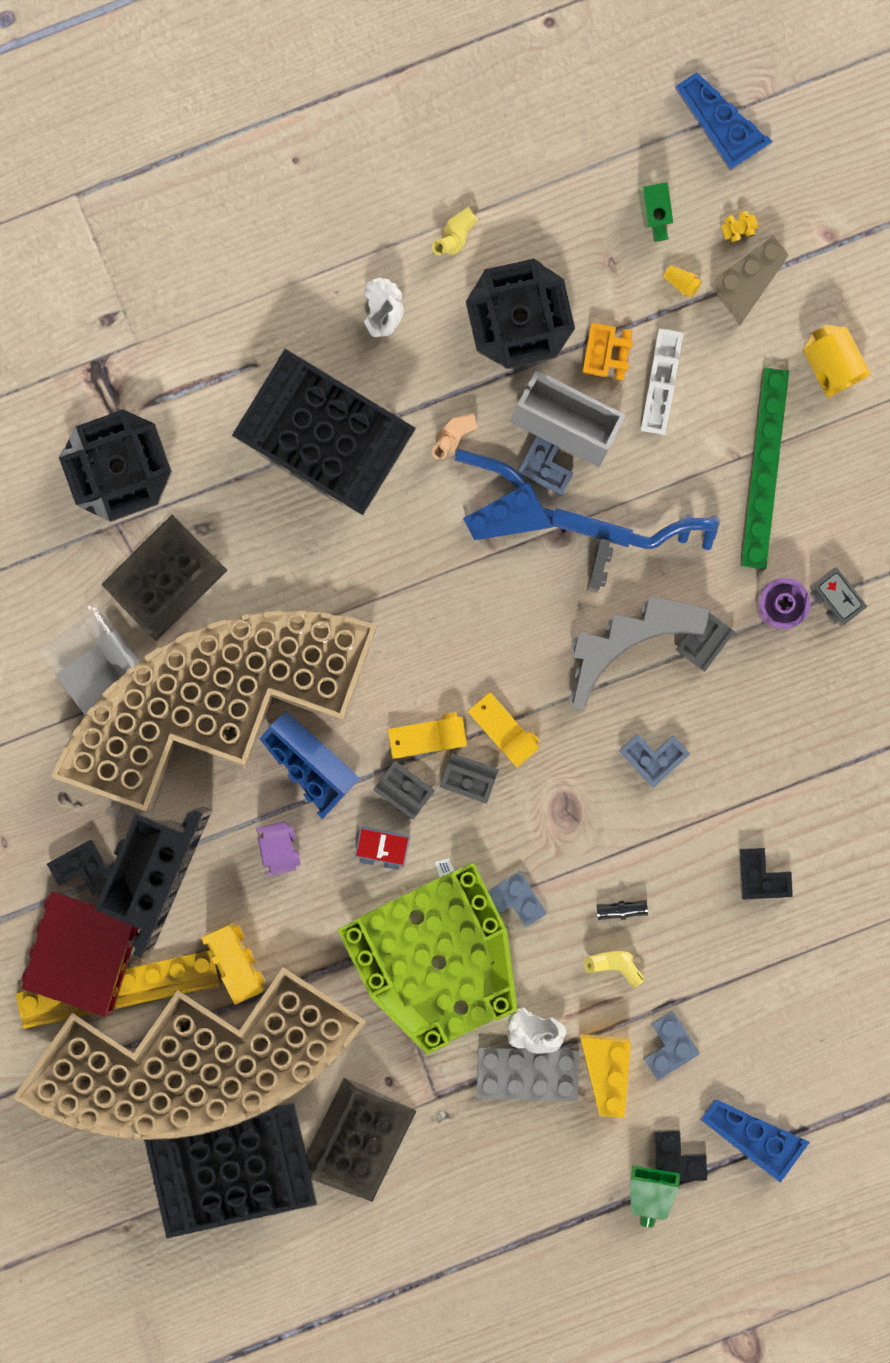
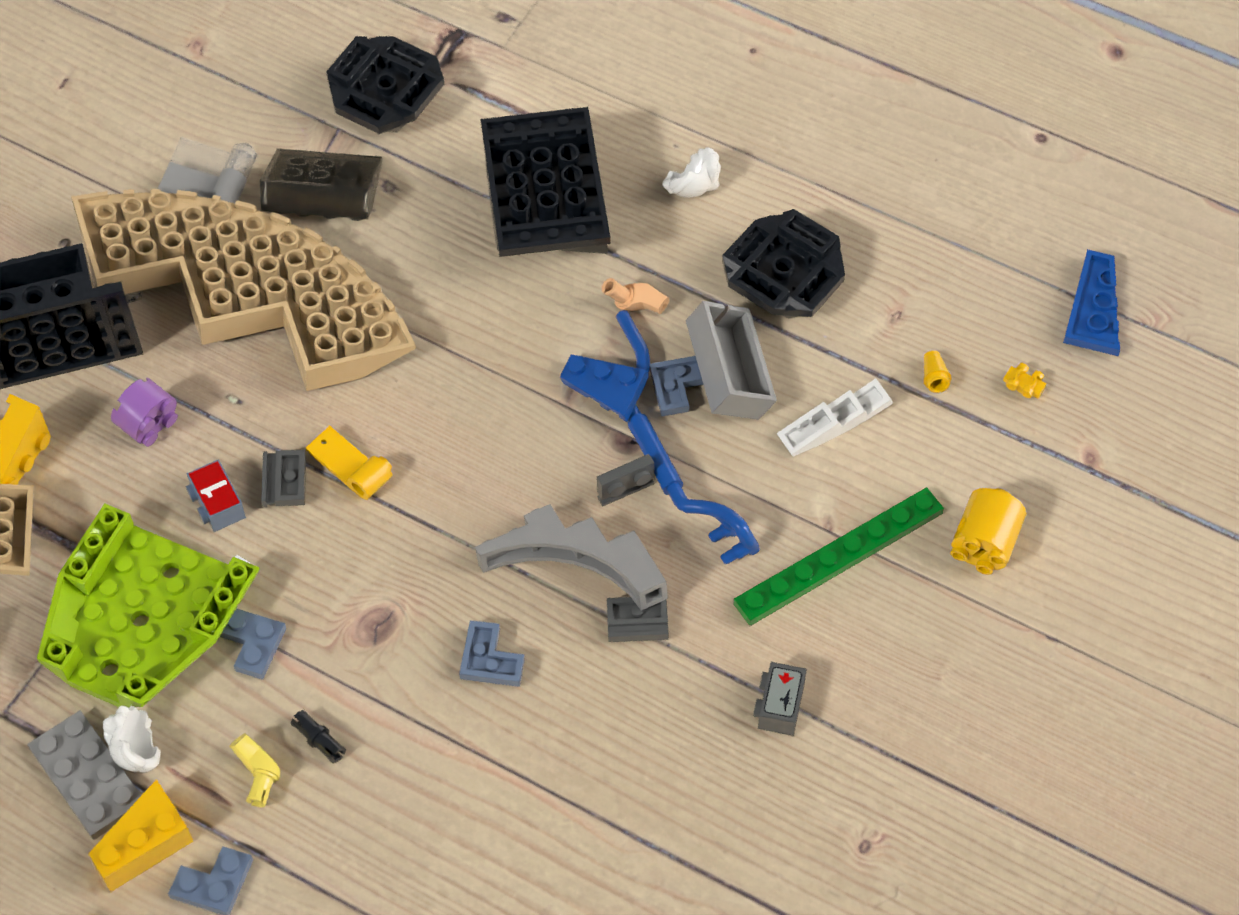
camera: 55 degrees right, 30 degrees down
(309, 763) = (246, 387): blue wedge -> none
(455, 233) = (804, 186): light yellow arm -> none
(469, 778) = (338, 521): dark grey plate -> none
(504, 730) = (408, 518): yellow door -> none
(599, 351) = (815, 352): light orange plate -> none
(658, 198) = (974, 302): green torso -> none
(747, 279) = (991, 415): dark tan wedge -> none
(758, 883) = (446, 834): black plate -> none
(771, 612) = (730, 653): medium lavender brick -> none

